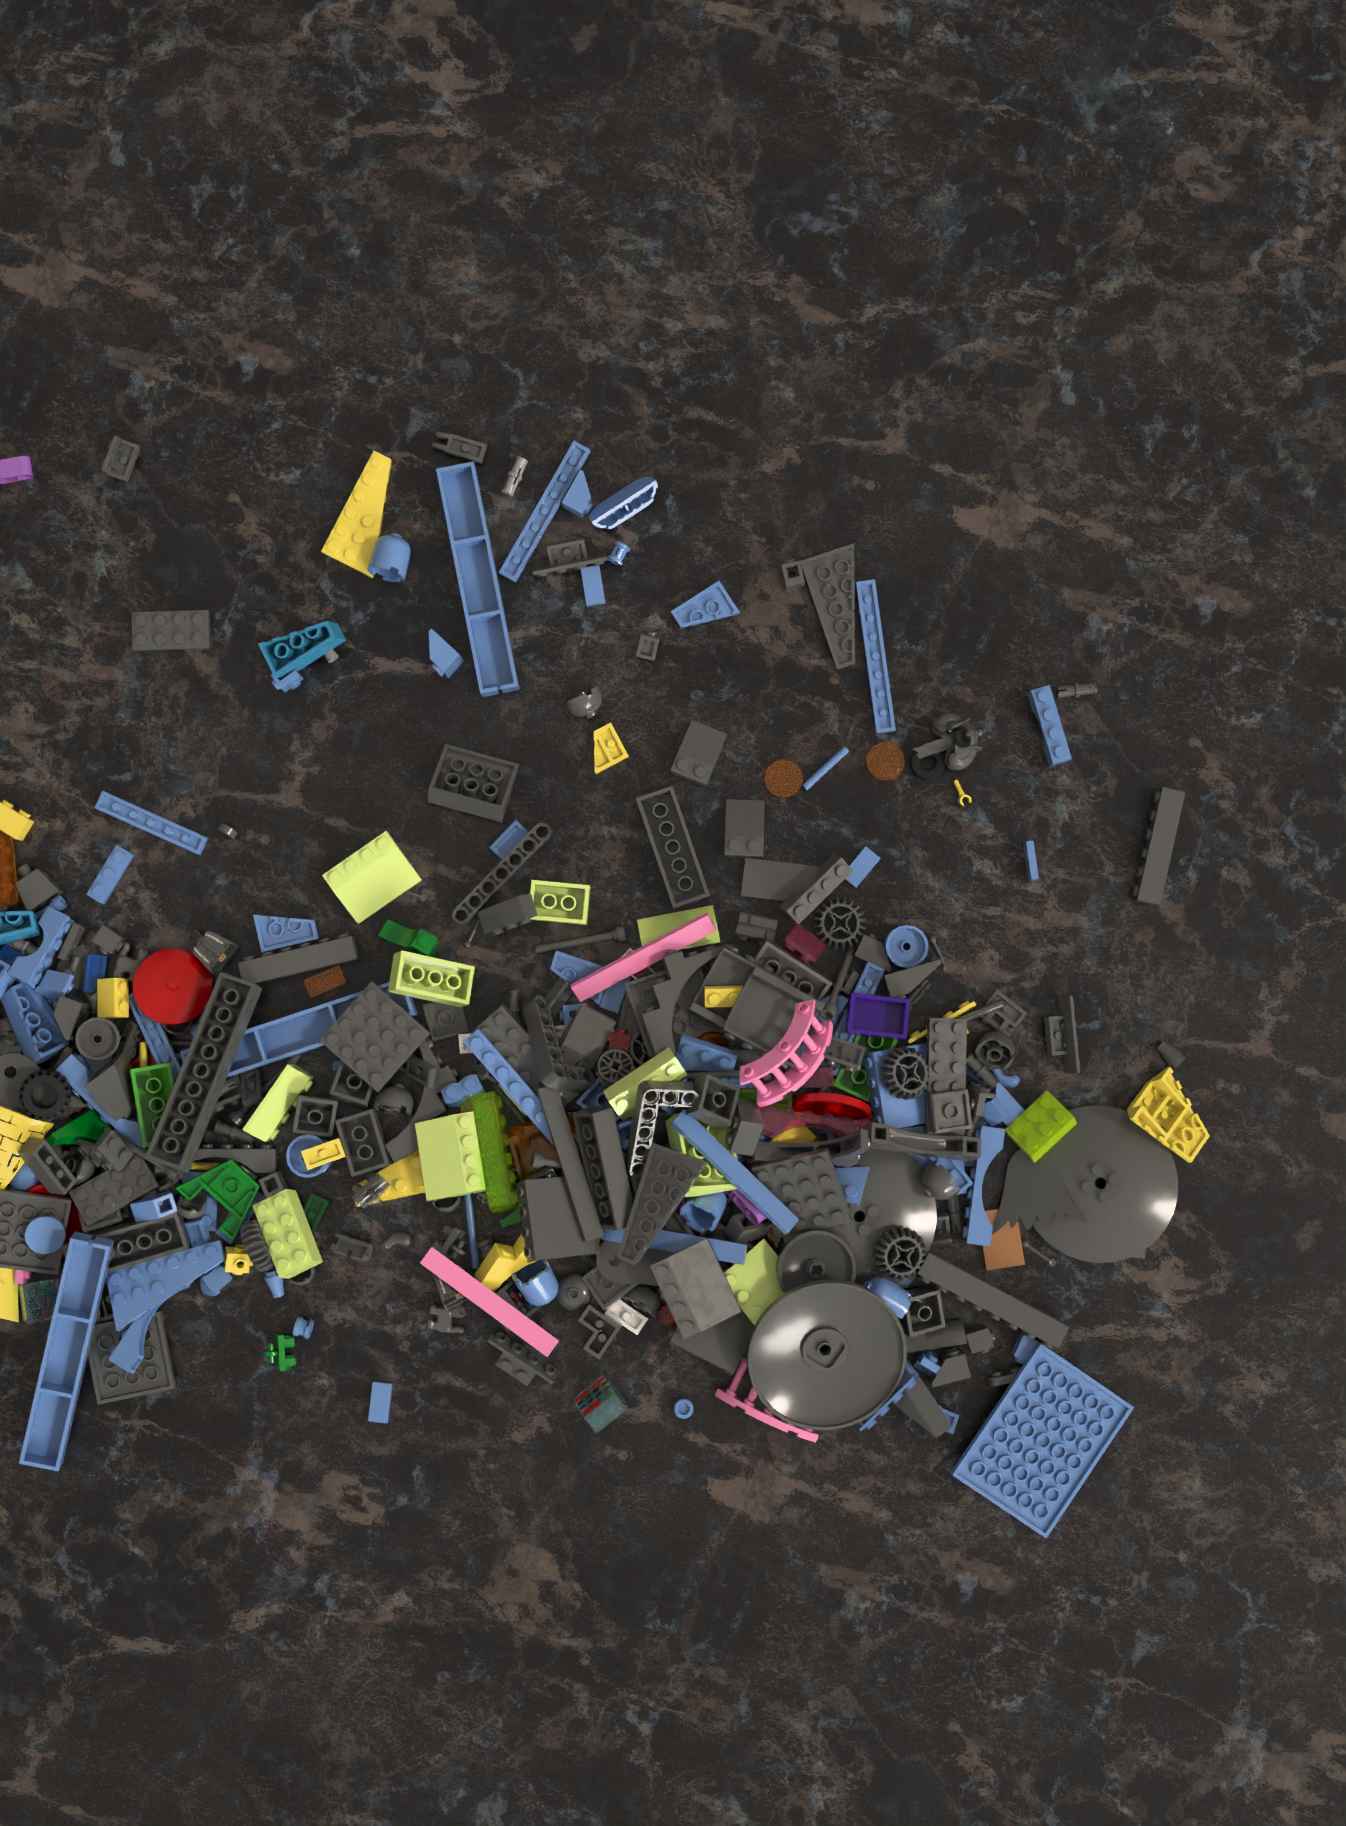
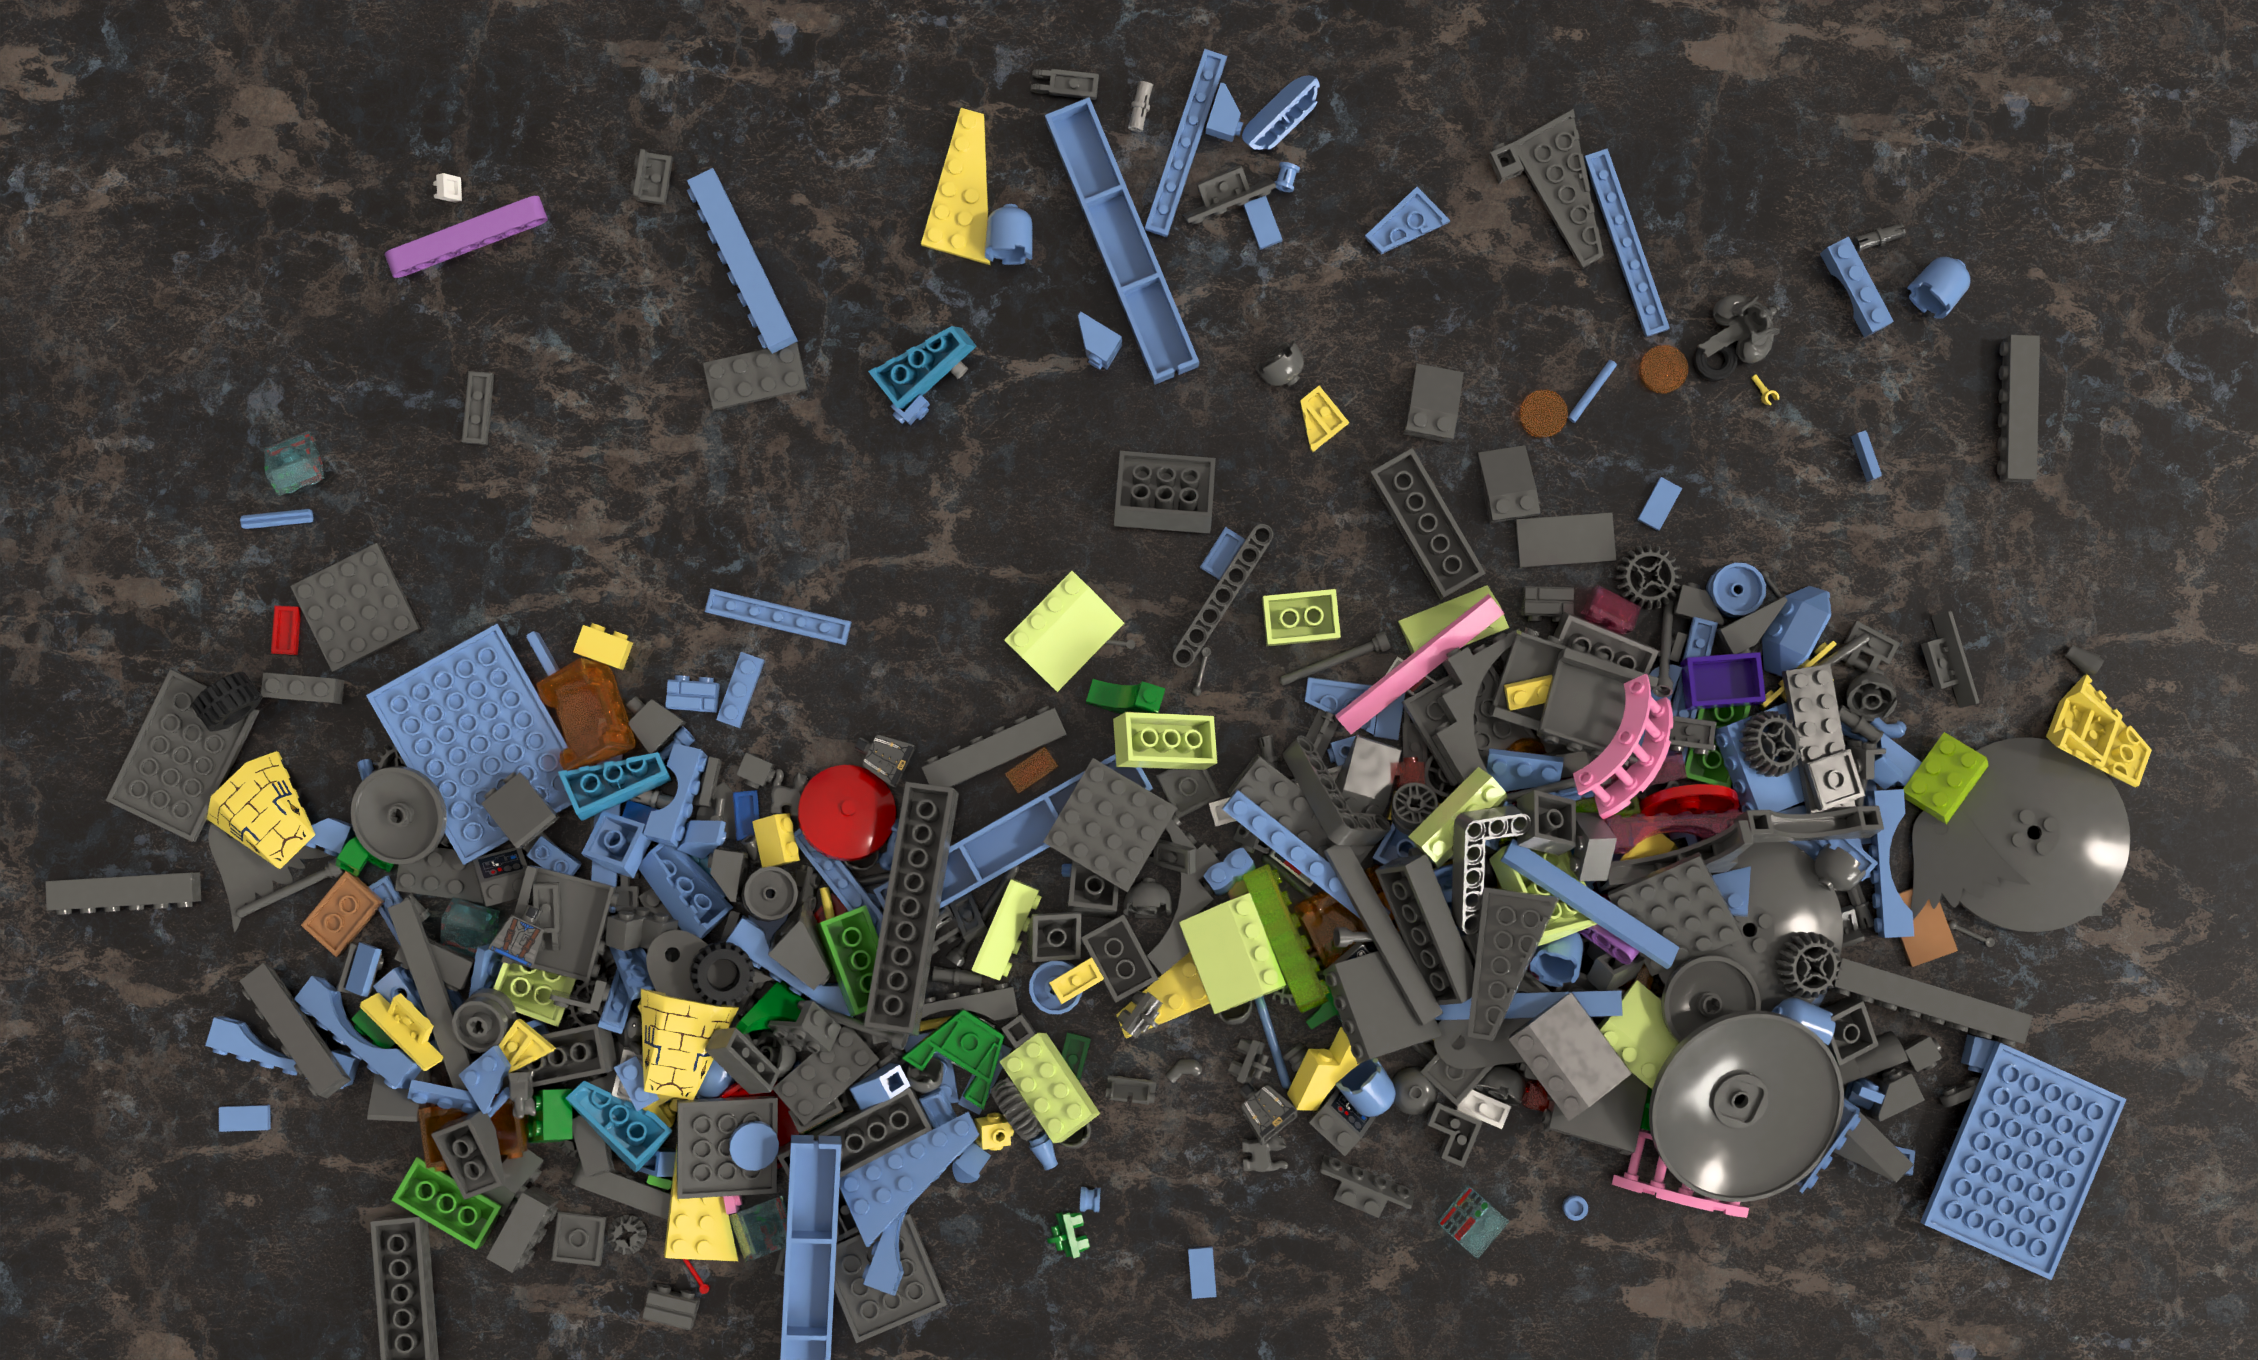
camera: 10 degrees left, 0 degrees up
(70, 871) = (692, 695): none -> medium blue brick
(177, 538) = (742, 261): none -> medium blue brick
(228, 831) = (874, 608): dark grey tile -> none
(283, 932) = (968, 719): medium blue wing -> none
(489, 1301) = (1316, 1122): bright pink tile -> none
(507, 914) = (1242, 644): dark grey brick -> none
(648, 644) = (1346, 281): dark grey bracket -> none
(802, 903) = (1599, 562): dark grey arch -> none
(946, 986) = (1795, 630): none -> medium blue wedge
(1115, 737) = (1940, 286): none -> medium blue cylinder

